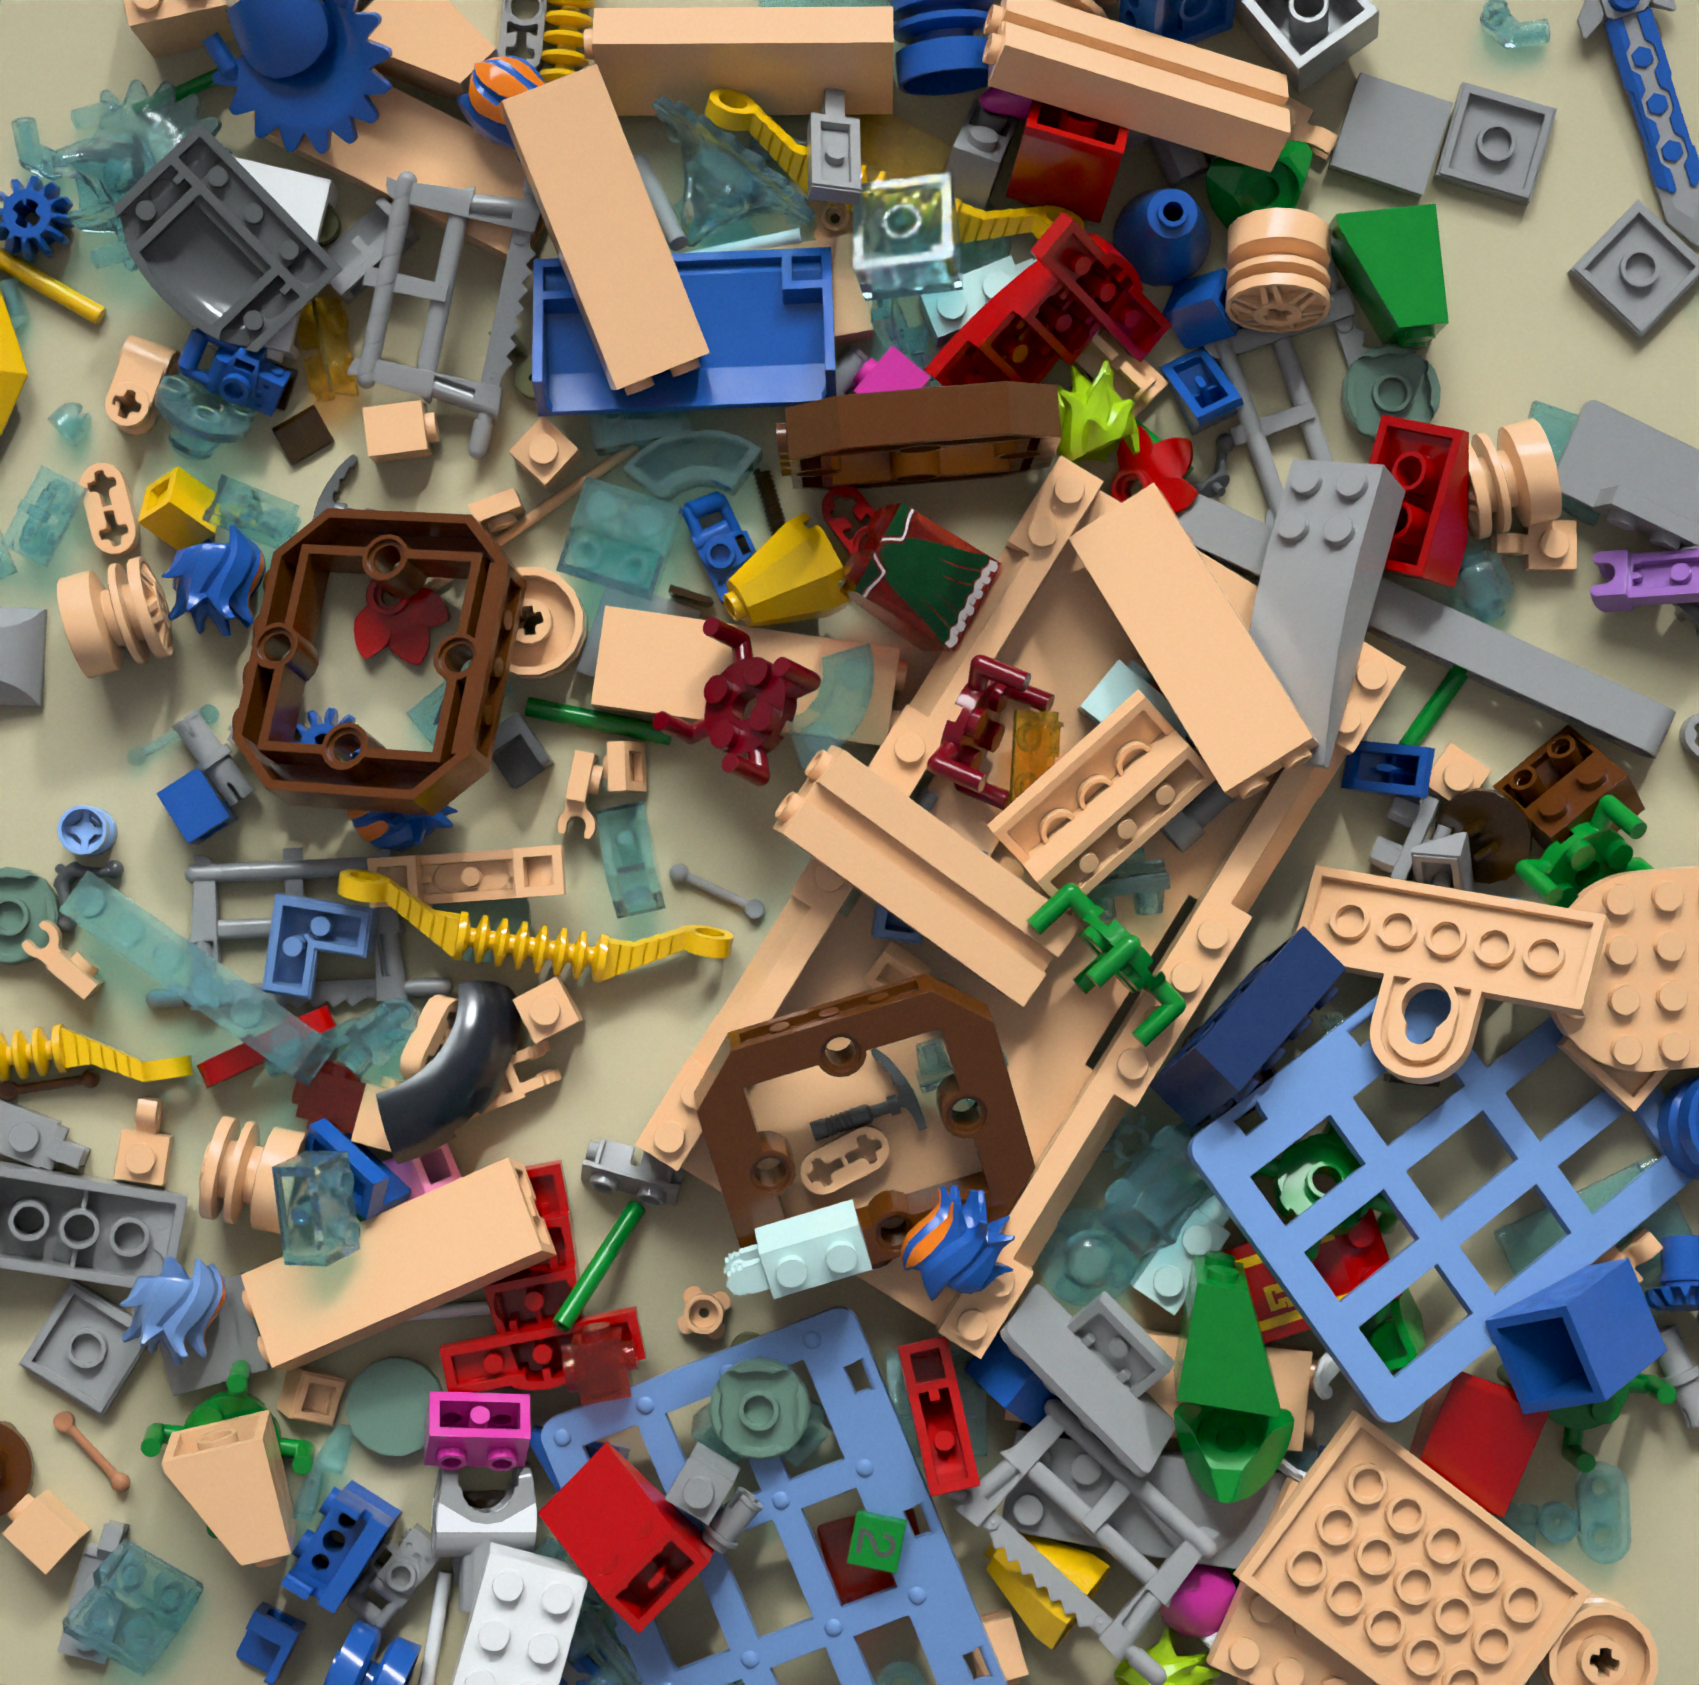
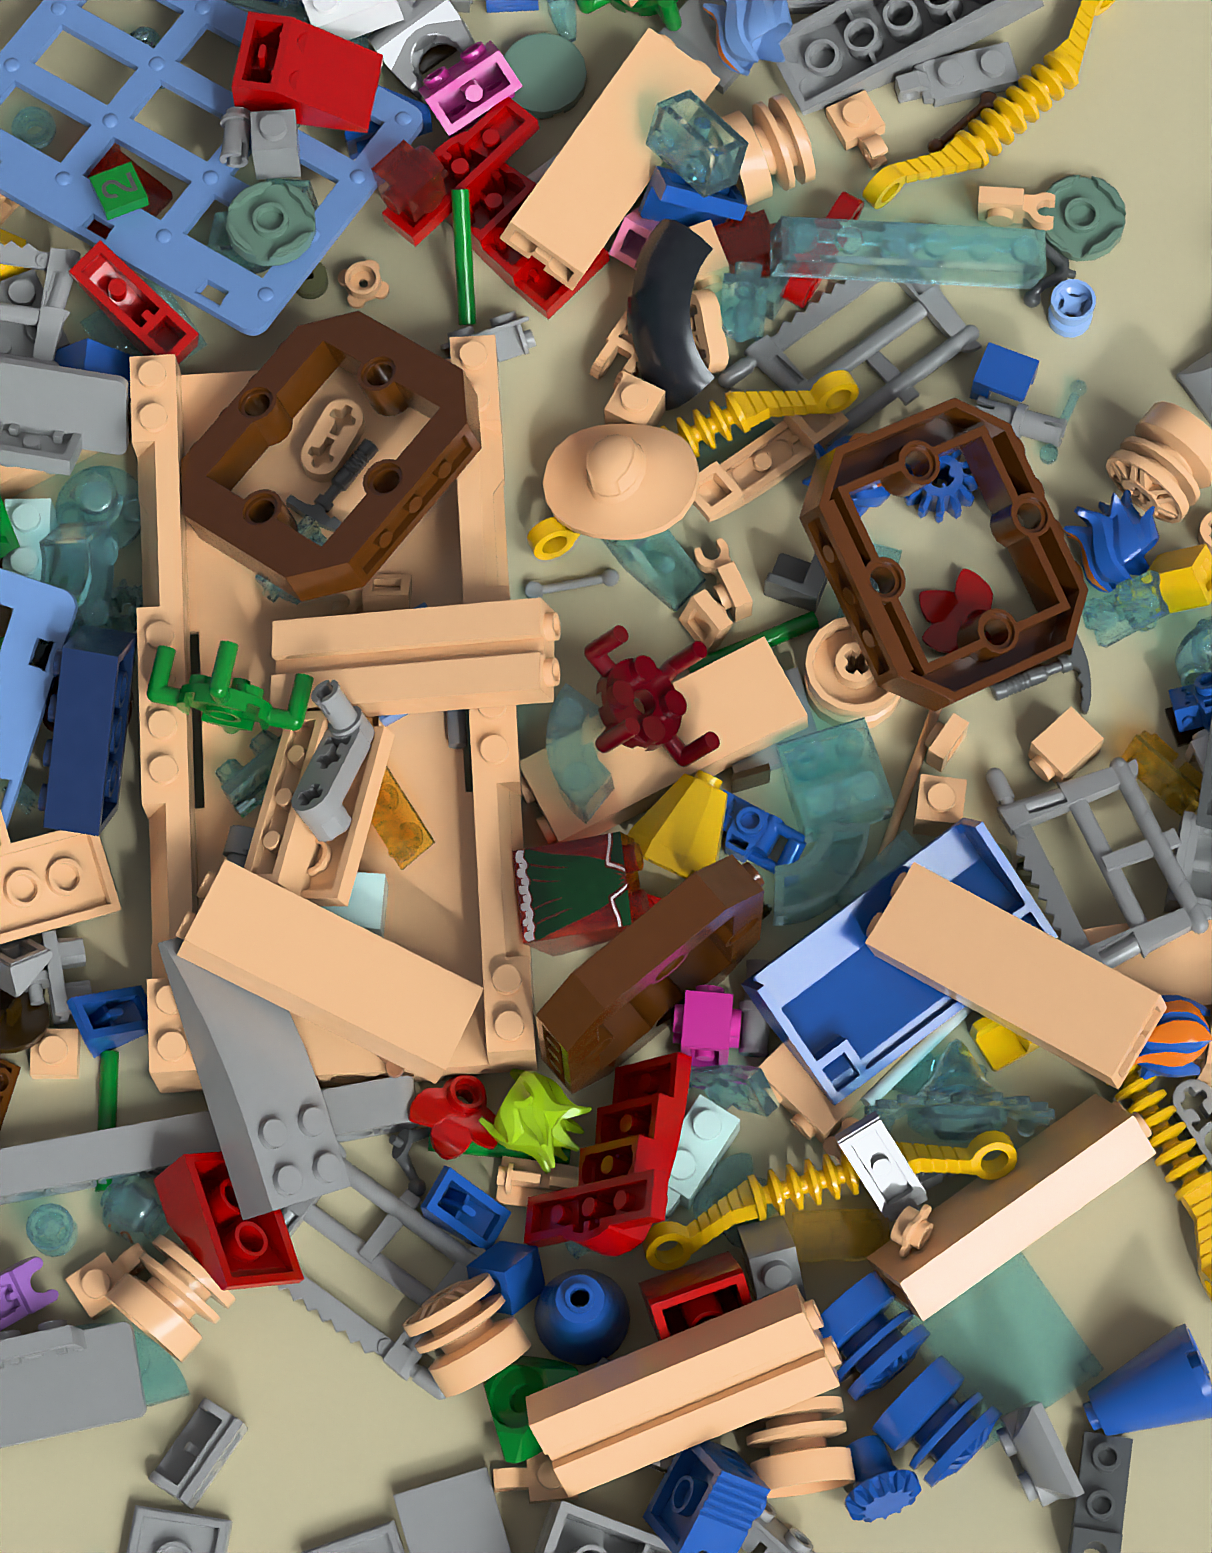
camera: 145 degrees right, 15 degrees down
(302, 930) = (856, 335): medium blue brick -> none
(303, 434) = (1137, 702): dark brown piece -> none
(311, 1395) = (608, 42): light nougat slope -> none
(612, 938) = (621, 481): none -> light nougat hat
(667, 219) = (997, 1055): light grey piece -> none
(800, 1253) = (314, 332): light aqua hinge -> none
(846, 87) = (912, 1229): none -> light nougat plate
(907, 237) = (779, 1148): clear light blue slope -> none
(956, 1245) = (202, 413): blue hair -> none
(978, 726) = (455, 806): dark red plate -> none
(1092, 804) = (334, 763): none -> light grey beam
(1389, 383) = (310, 1317): sand green tile -> none
(1394, 271) = (373, 1403): green slope -> none
(1562, 343) = (198, 1453): none -> light grey hinge
(1570, 619) = (47, 1221): none -> clear light blue wheel

